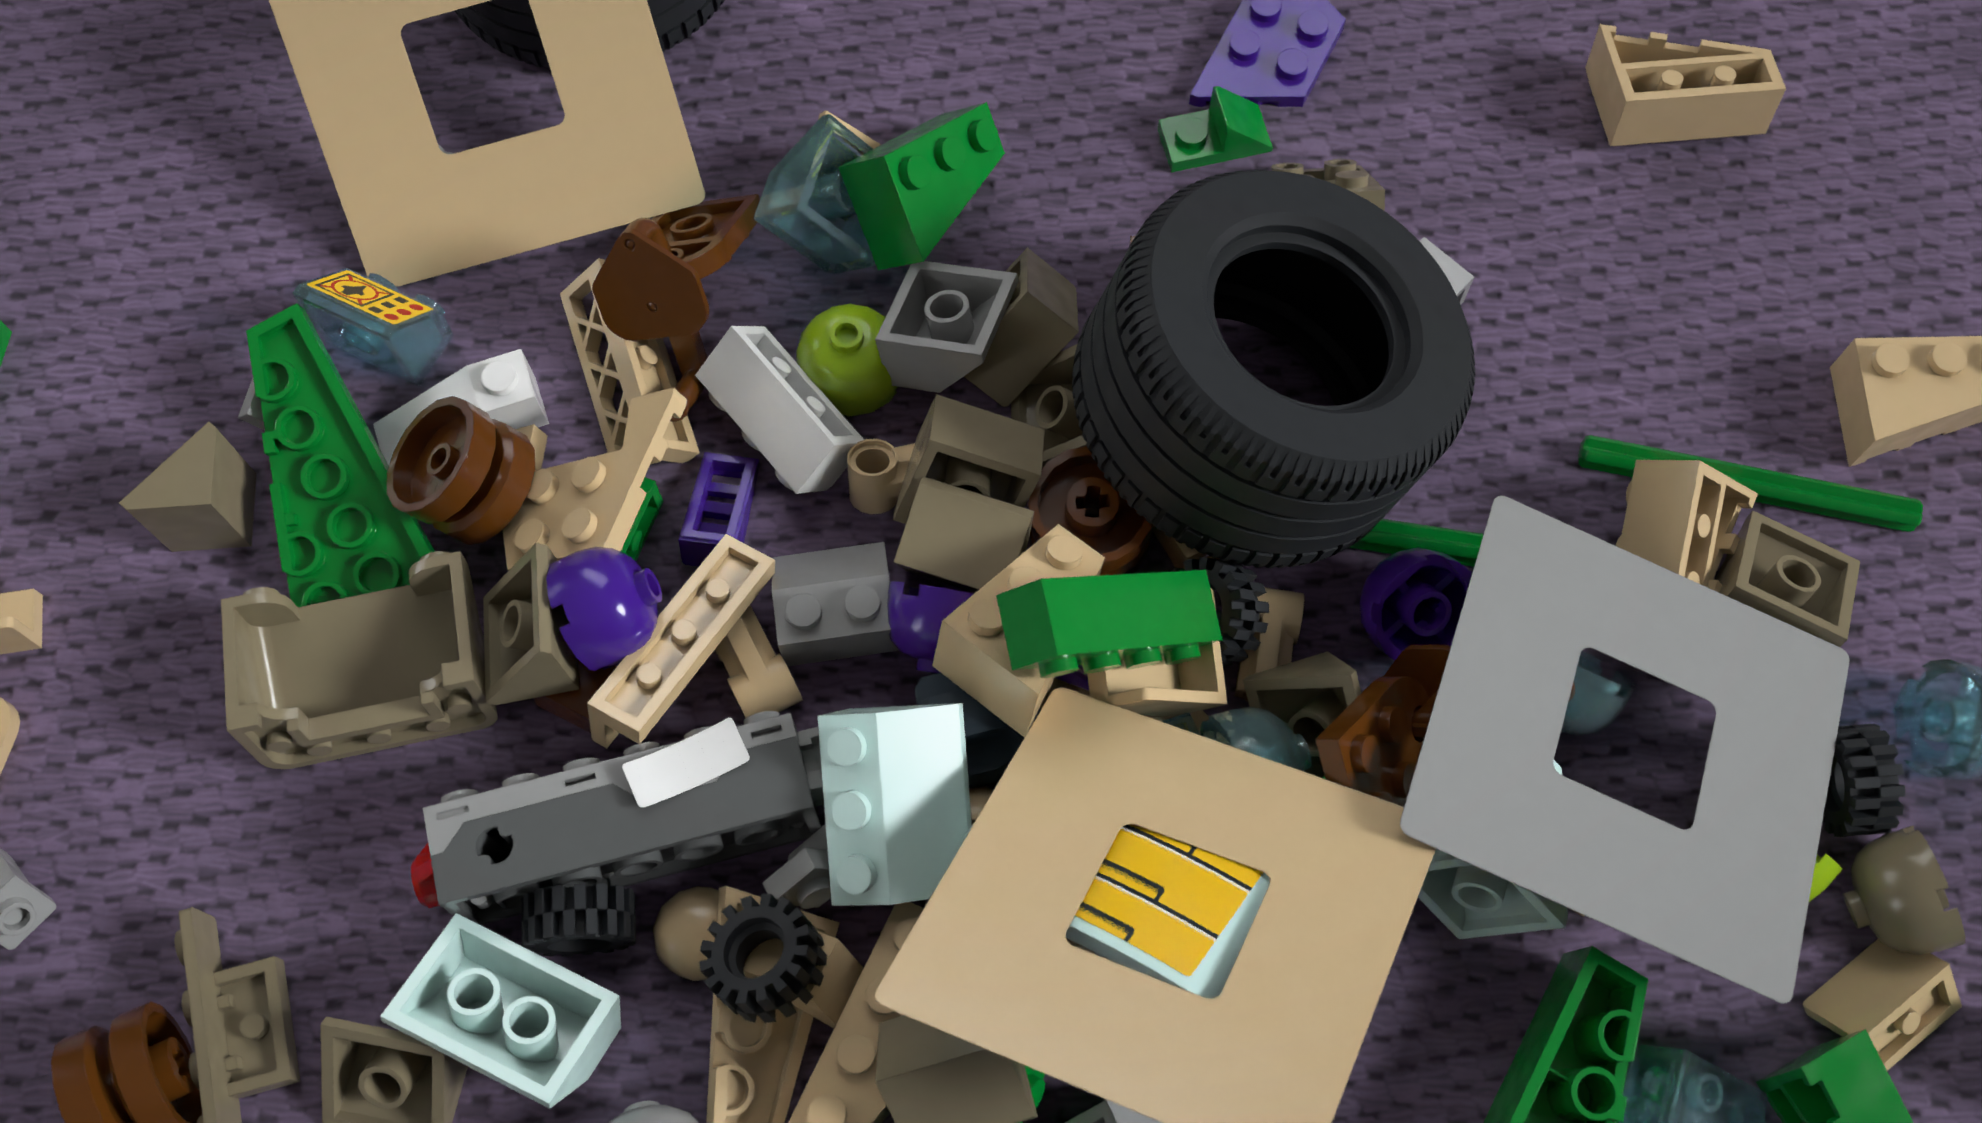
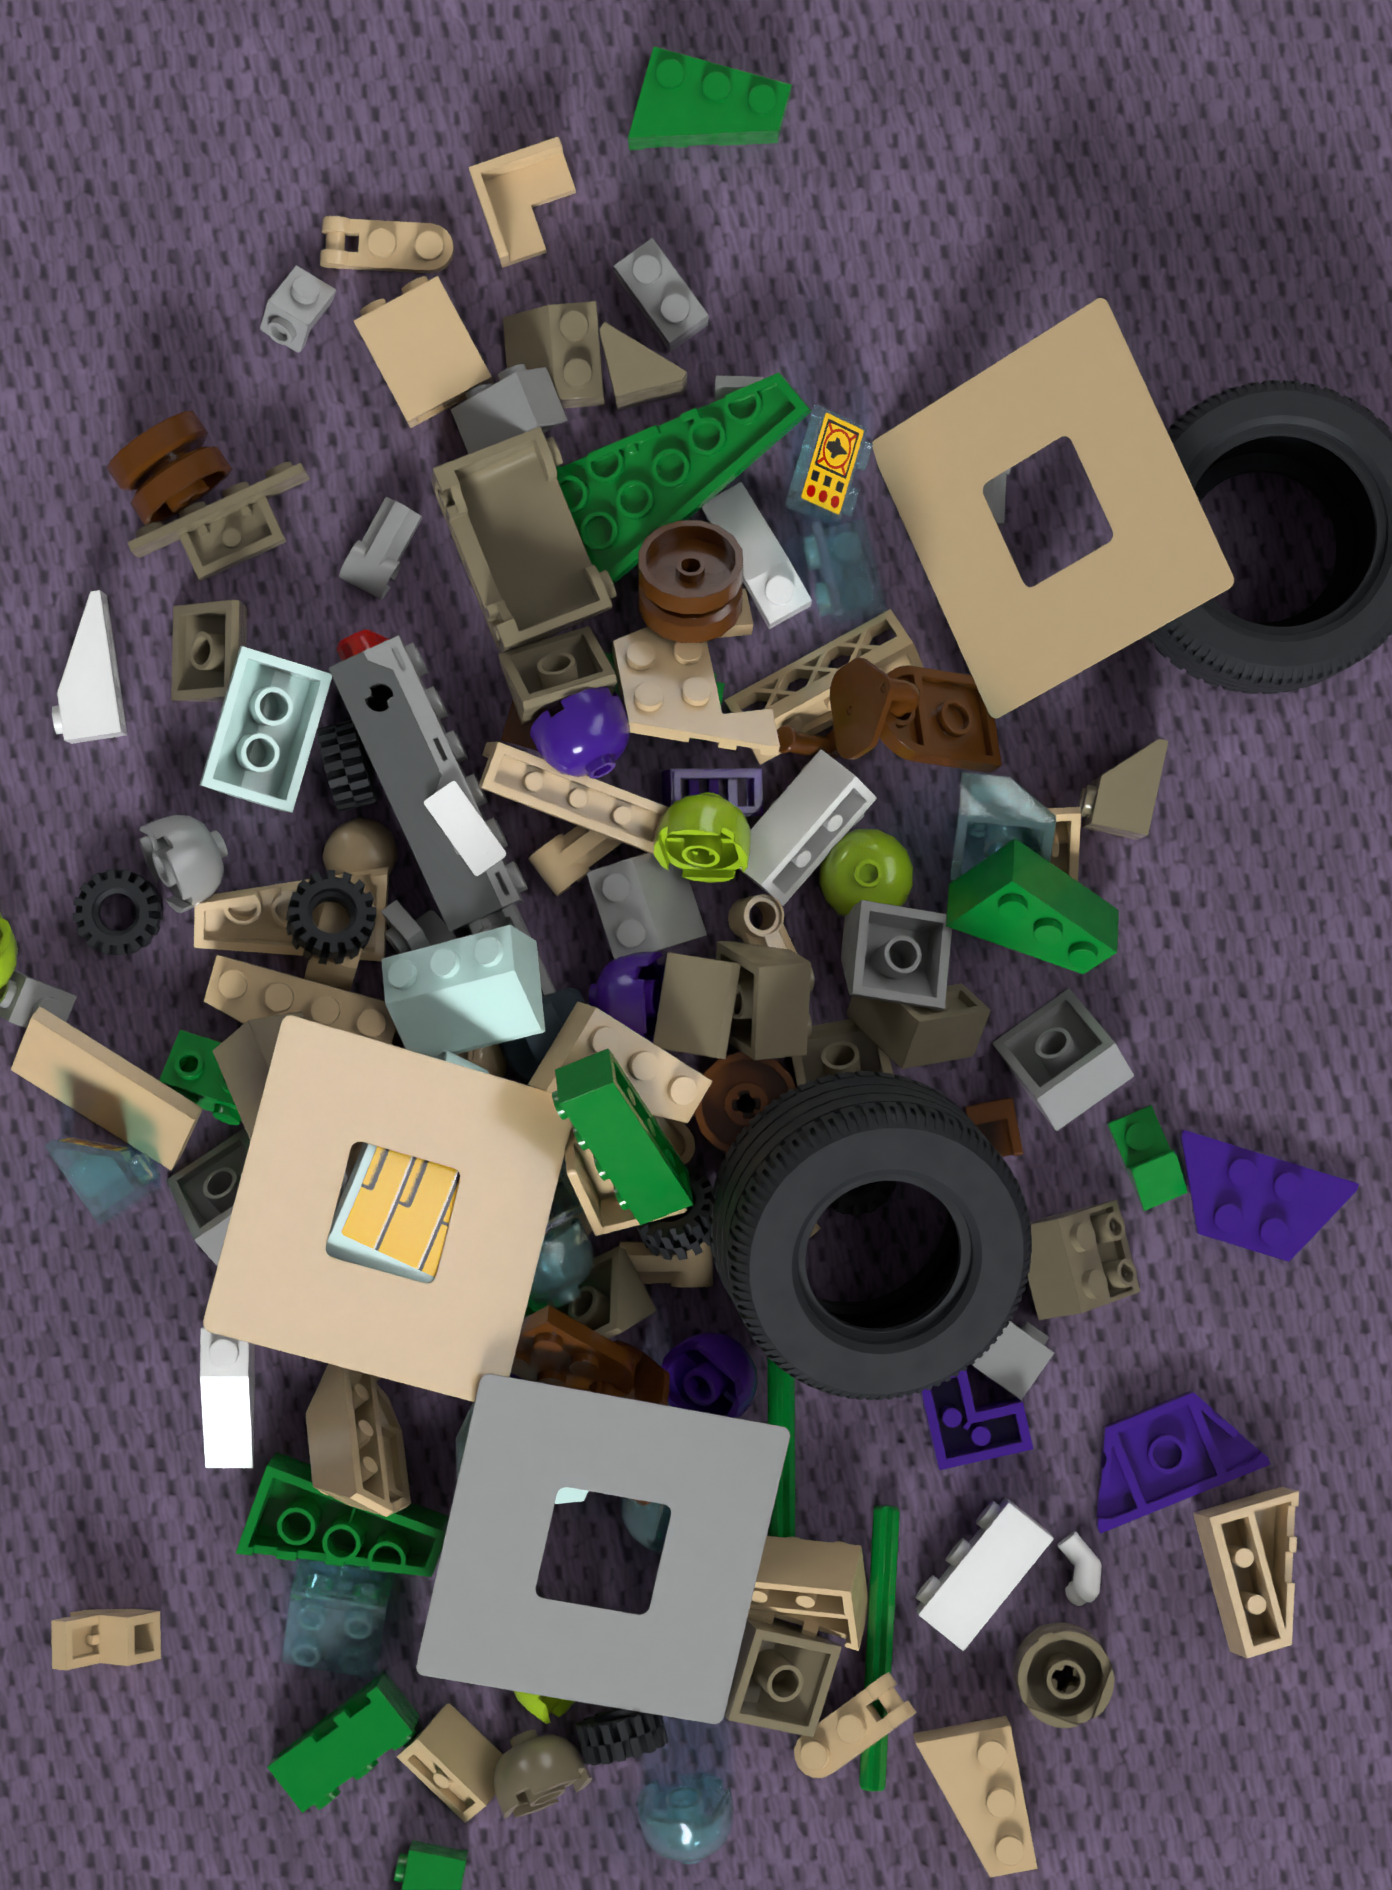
camera: 80 degrees right, 20 degrees up
(99, 744) = (422, 349): none -> tan panel
(115, 461) = (661, 295): none -> light grey brick
(160, 594) = (565, 343): none -> dark tan slope
(188, 643) = (508, 408): none -> light grey brick
(333, 847) = (378, 554): none -> light grey piece
(496, 326) = (846, 571): none -> clear light blue bracket
(767, 502) = (703, 838): none -> lime cylinder
(816, 69) = (1125, 796): none -> dark tan slope
(1092, 190) = (1063, 1059): none -> light grey slope
(1465, 1054) = (357, 1443): none -> tan wedge
(1507, 330) = (969, 1432): none -> dark purple brick
(1549, 162) = (1168, 1457): none -> dark purple wing
(1666, 256) = (1087, 1570): none -> white arm
(1668, 355) = (982, 1572): none -> white brick
(1792, 286) = (1074, 1699): none -> dark tan brick
(1849, 515) = (852, 1729): none -> tan plate

